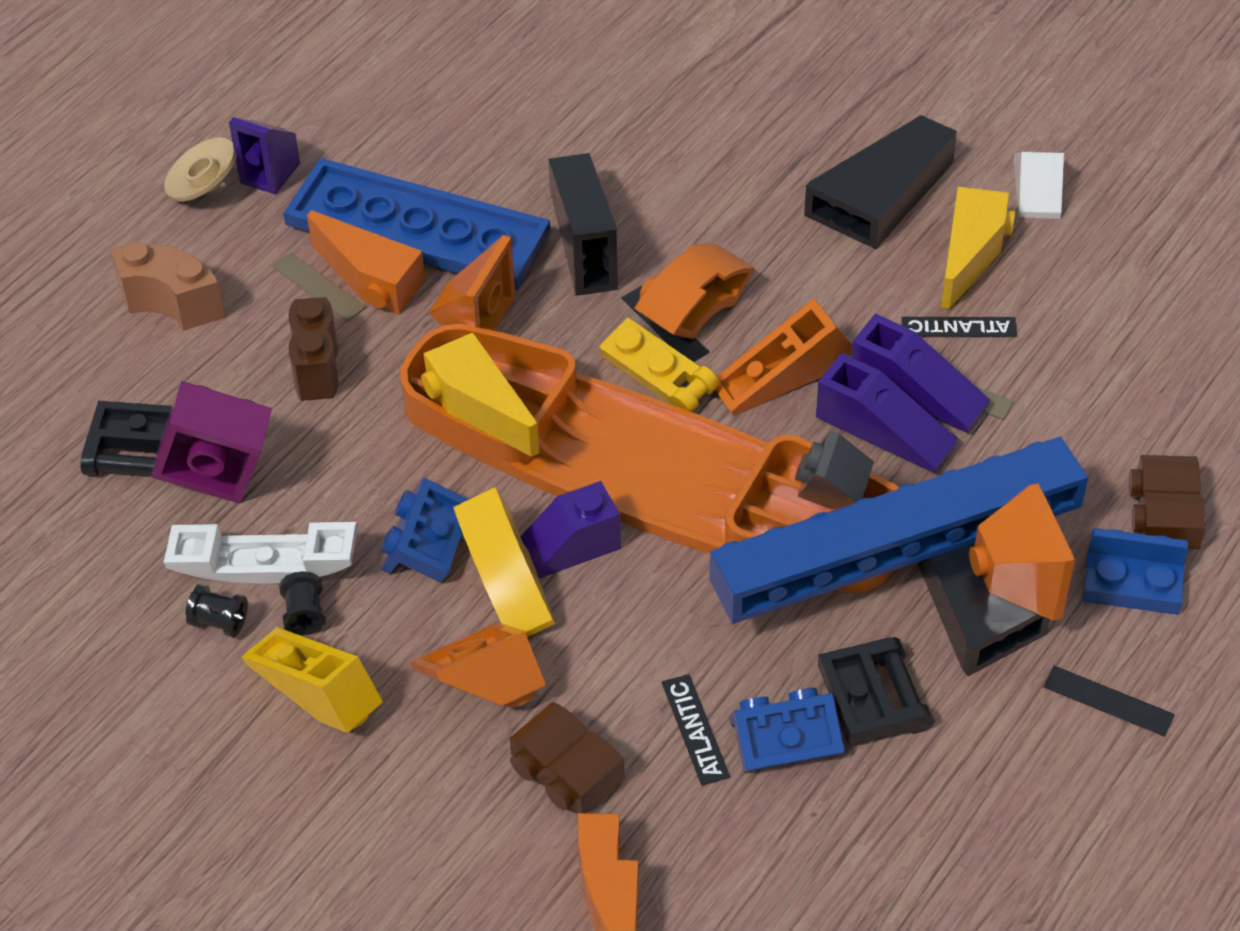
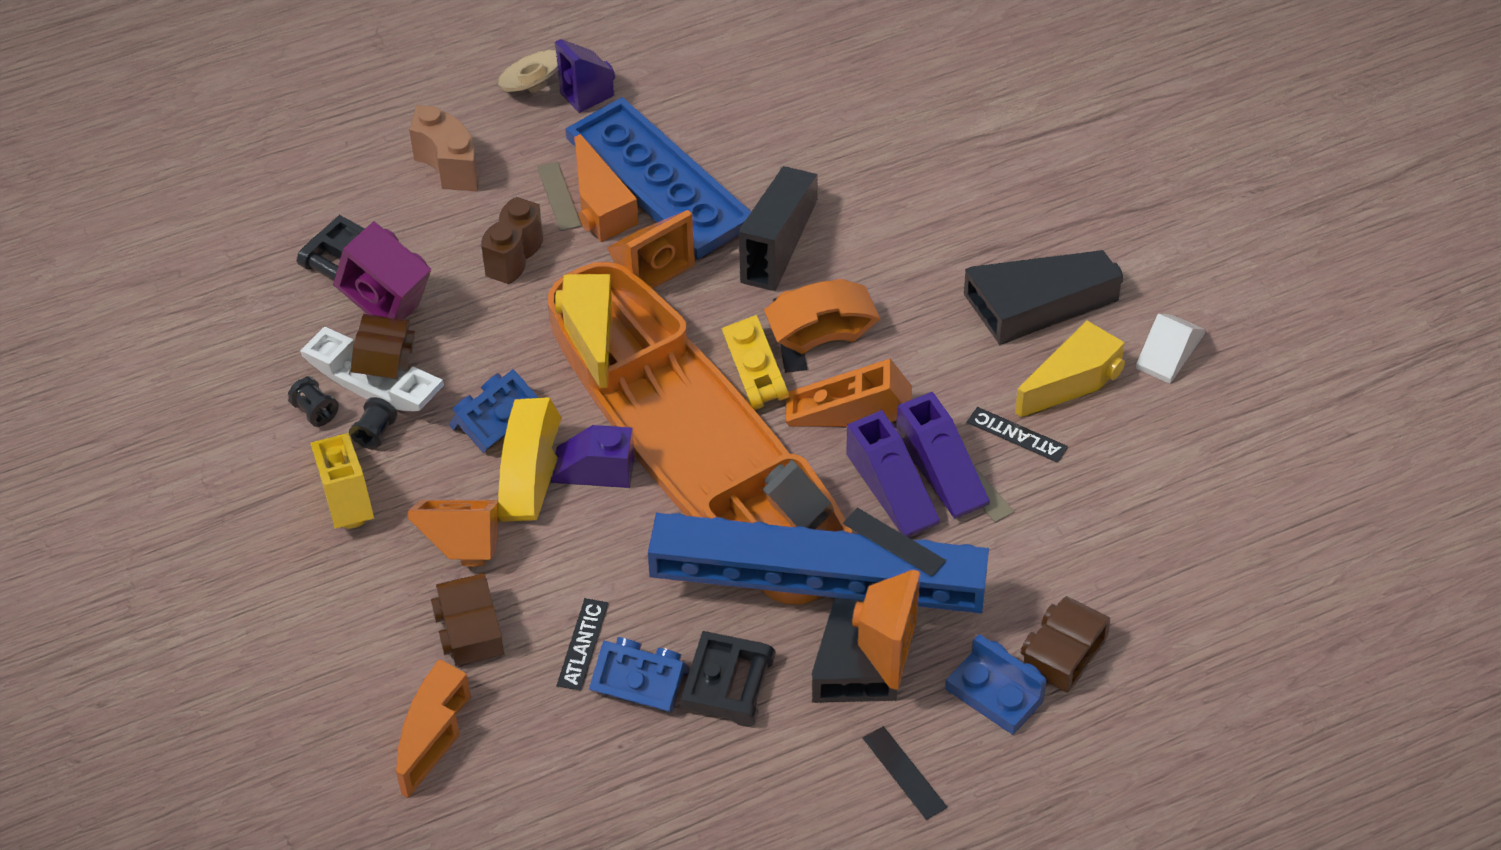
camera: 30 degrees right, 0 degrees up
(259, 517) = (382, 346): none -> reddish brown brick
(968, 471) = (894, 541): none -> black sticker

